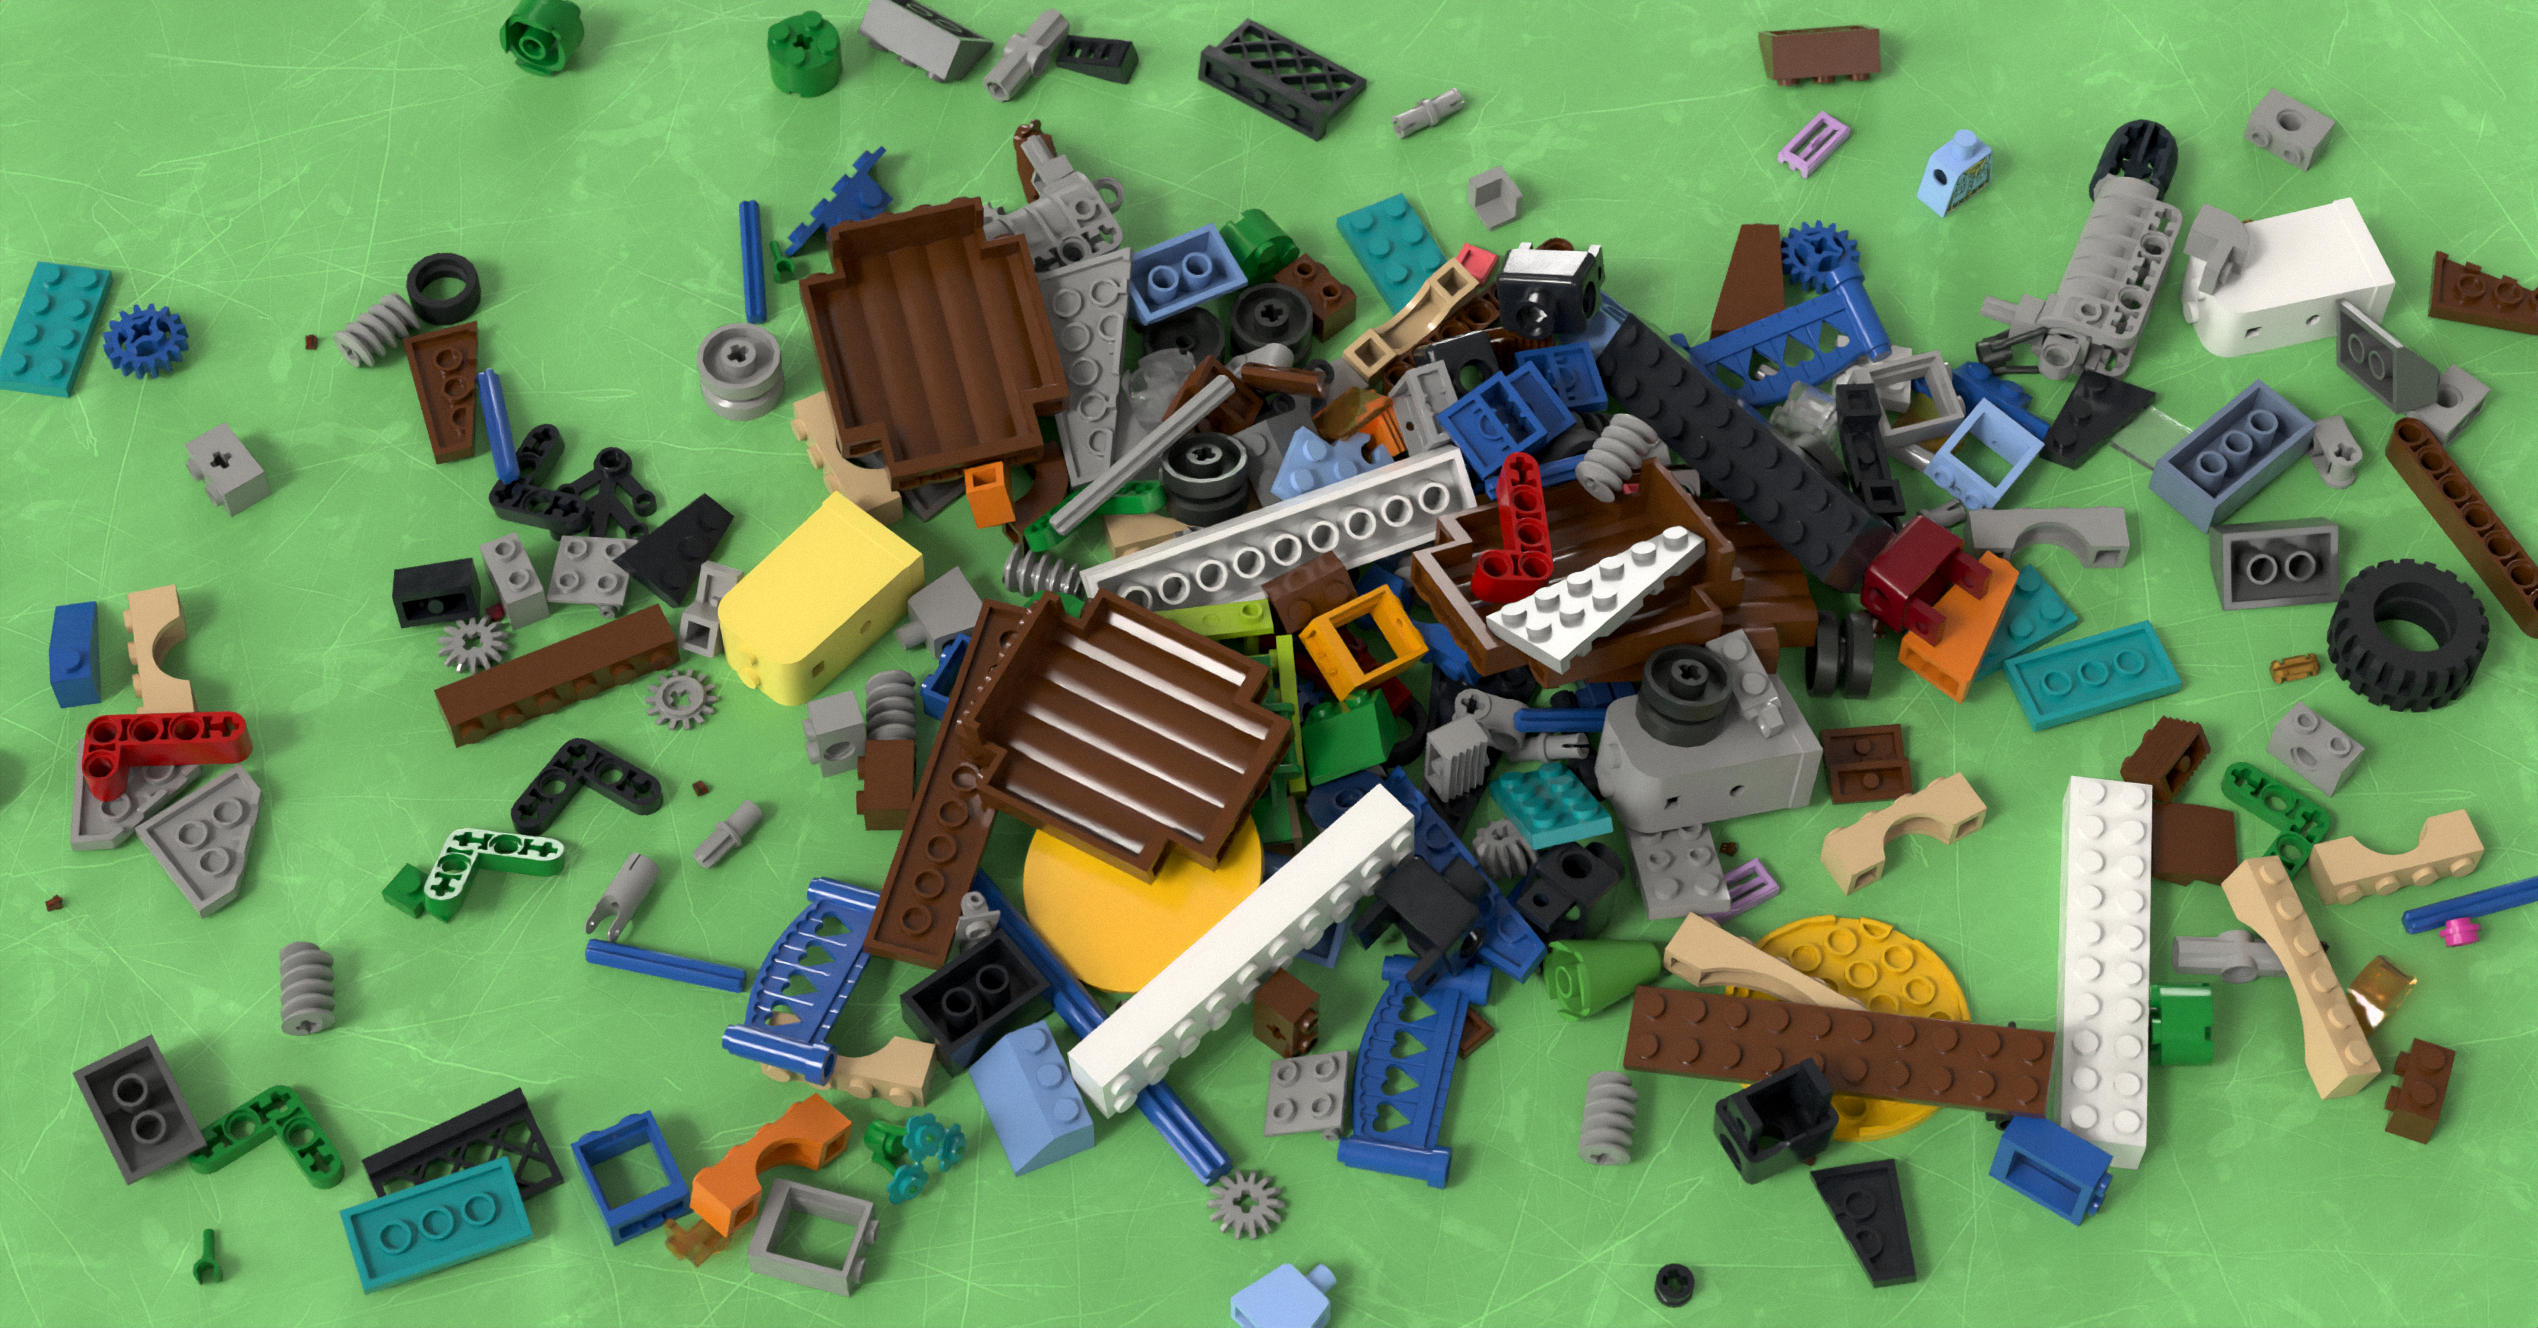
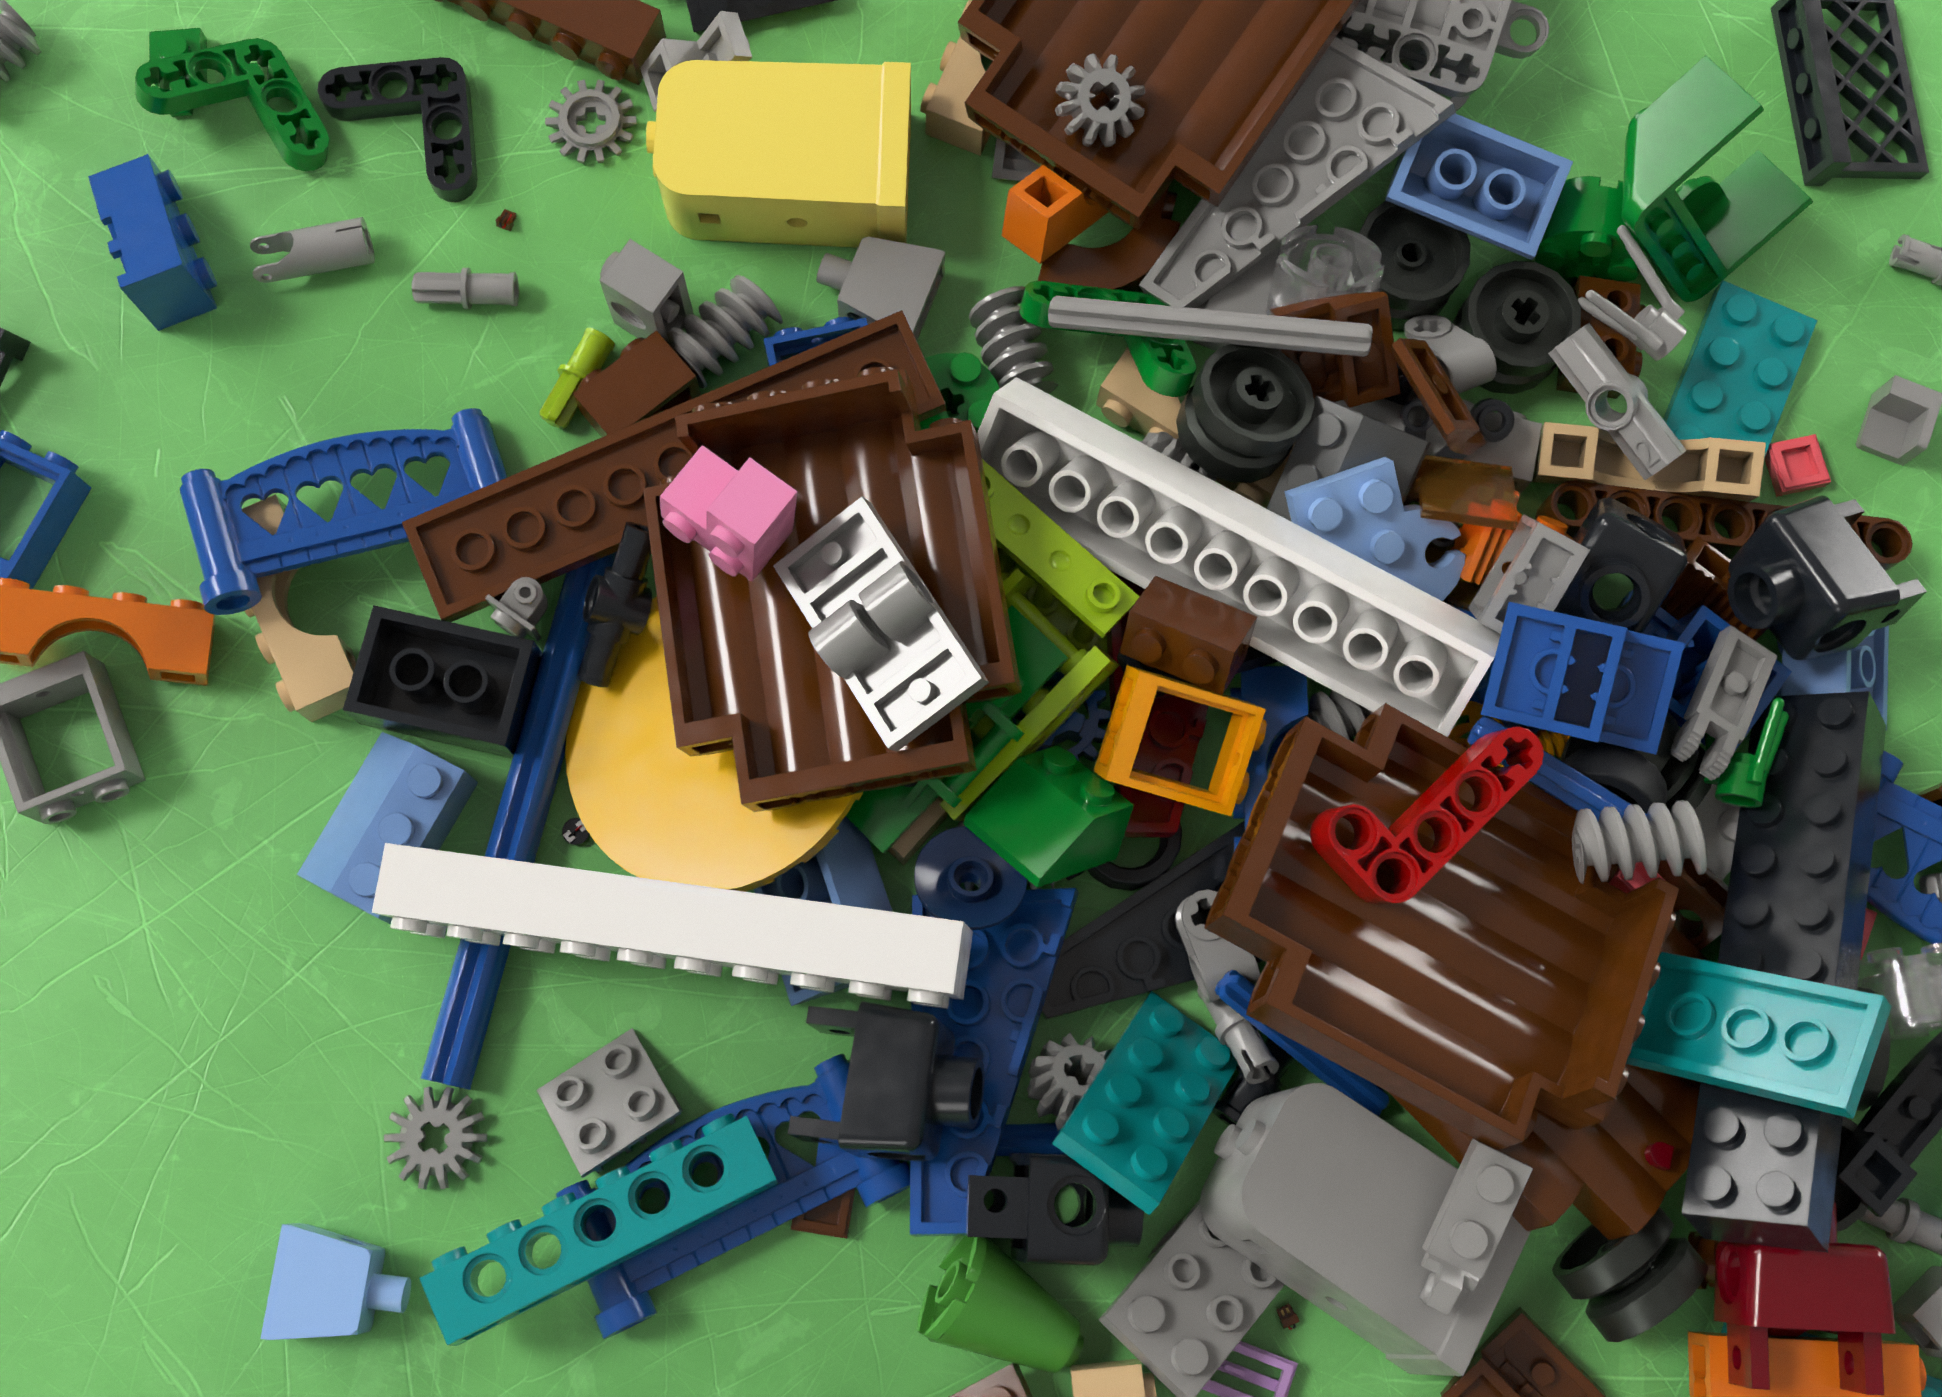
camera: 45 degrees right, 20 degrees up
(534, 976) = (153, 242): none -> blue wedge
(666, 965) = (274, 352): blue axle -> none
(843, 815) = (587, 357): none -> lime axle
(923, 1138) = (207, 767): teal plant -> none
(959, 410) = (1095, 80): none -> light grey gear
(1019, 870) = (616, 605): none -> black pin
(1046, 740) = (730, 511): none -> bright pink brick
(1175, 710) = (879, 625): none -> light grey plate
(1282, 182) = (1704, 226): none -> green windscreen
(1286, 1015) = (668, 1015): reddish brown brick -> none
(1337, 263) = (1652, 329): none -> light grey plant
(1367, 1223) = (467, 1312): none -> teal brick
(1389, 311) = (1640, 430): none -> light grey piece
(1456, 756) = (1127, 950): light grey brick -> none
(1576, 376) = (1724, 700): none -> light grey hinge
(1593, 603) = (1386, 984): wing -> none
(1621, 397) = (1747, 774): none -> green plant
(1684, 695) = (1386, 1170): pearl dark grey wheel -> none
(1762, 473) = (1761, 1033): none -> teal plate
(1787, 581) = (1659, 1155): none -> dark red piece

